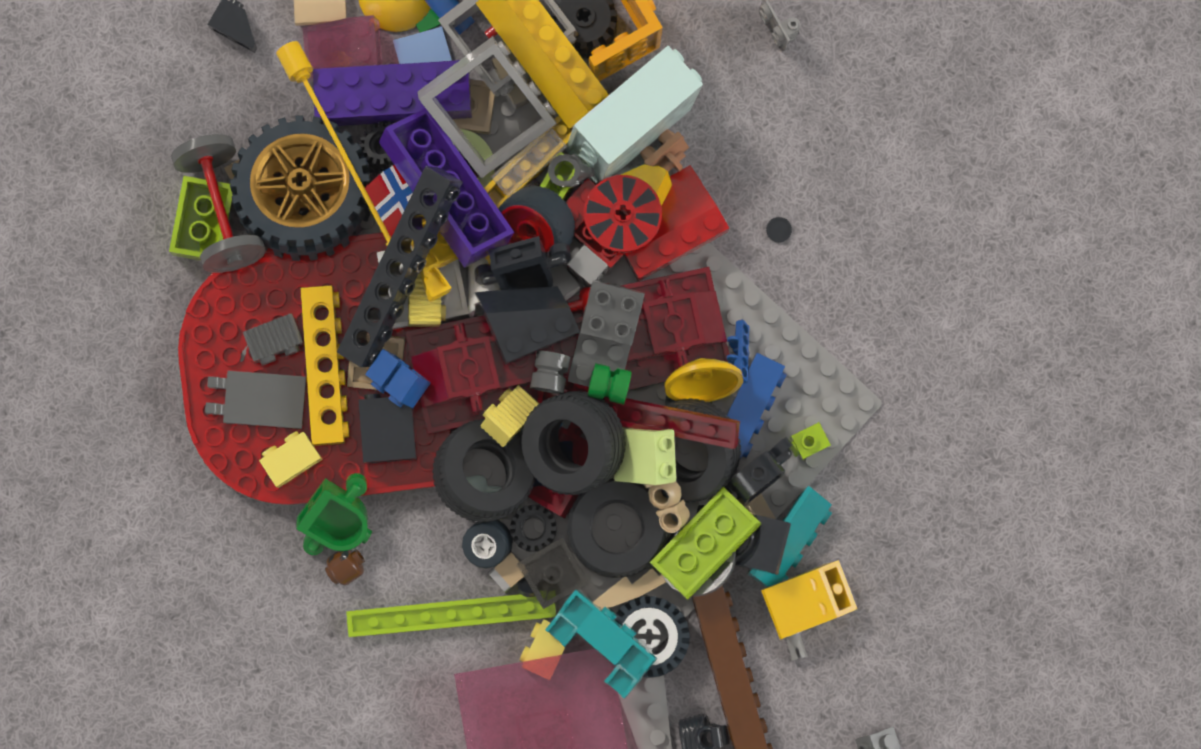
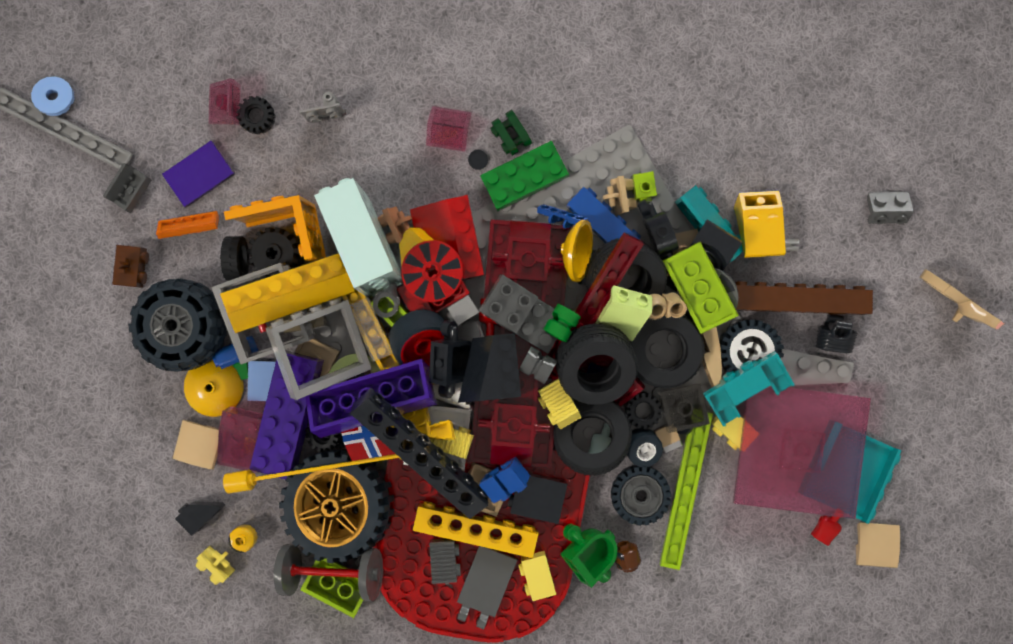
camera: 65 degrees left, 5 degrees up
(180, 65) = (216, 564): none -> light yellow hips
(228, 93) = (243, 538): none -> yellow head
(406, 554) = (640, 510): none -> wheel
(776, 292) = (524, 175): none -> green plate
(787, 412) = (618, 197): none -> tan hips
(805, 181) = (448, 128): none -> clear pink slope
(823, 243) = (509, 144): none -> dark green brick

